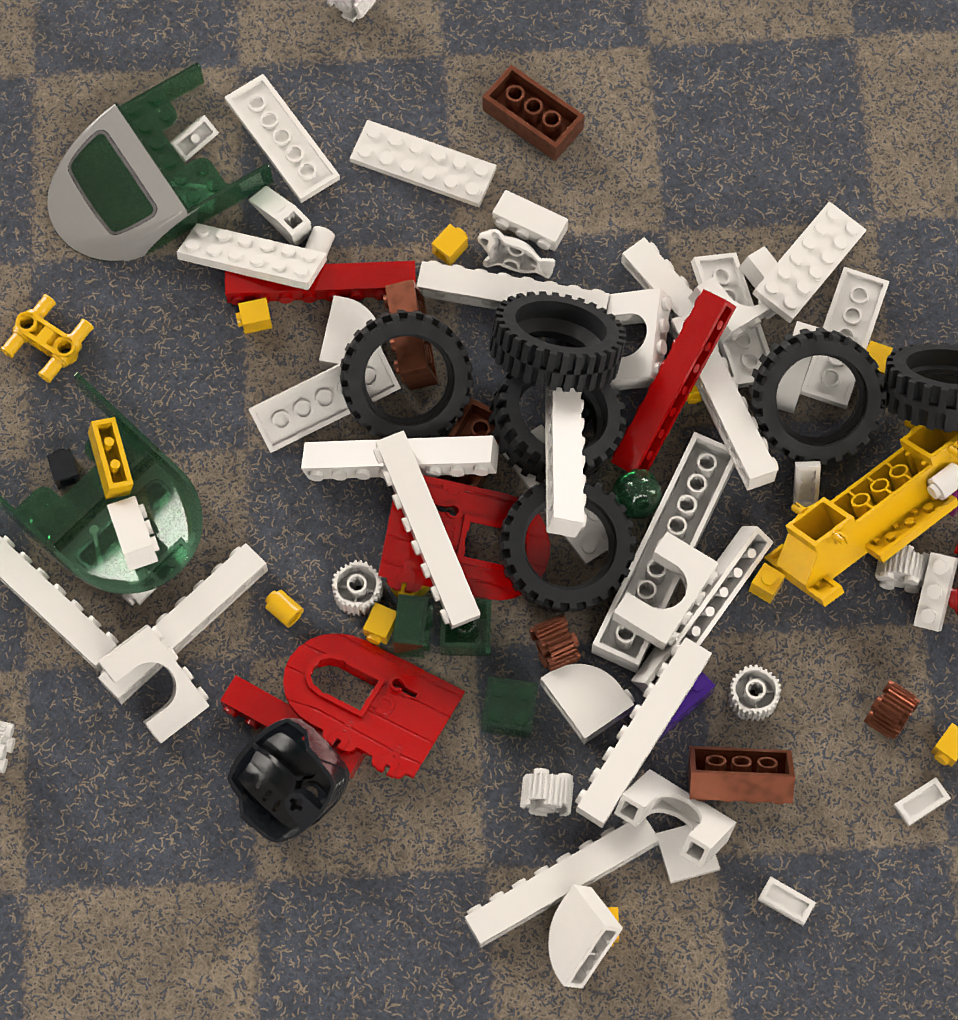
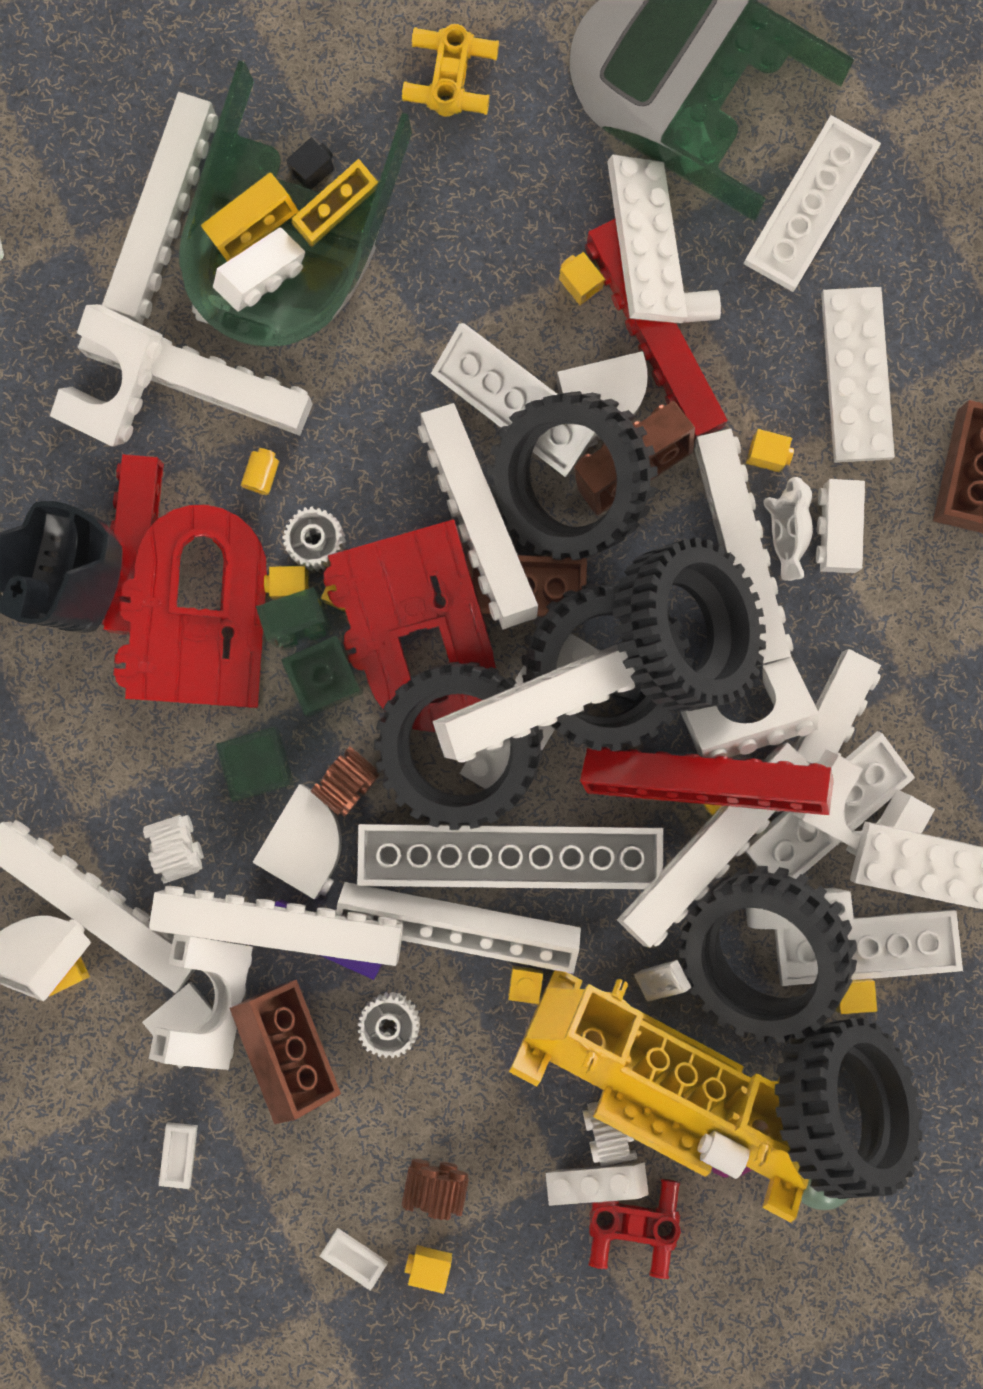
camera: 65 degrees right, 15 degrees up
(86, 525) = (250, 217): none -> yellow brick
(194, 138) = (765, 108): white slope -> none
(282, 215) = (715, 248): white slope -> none
(427, 530) = (395, 583): white brick -> none
(638, 492) = (561, 796): clear green cylinder -> none
(661, 625) = (409, 895): white arch -> none

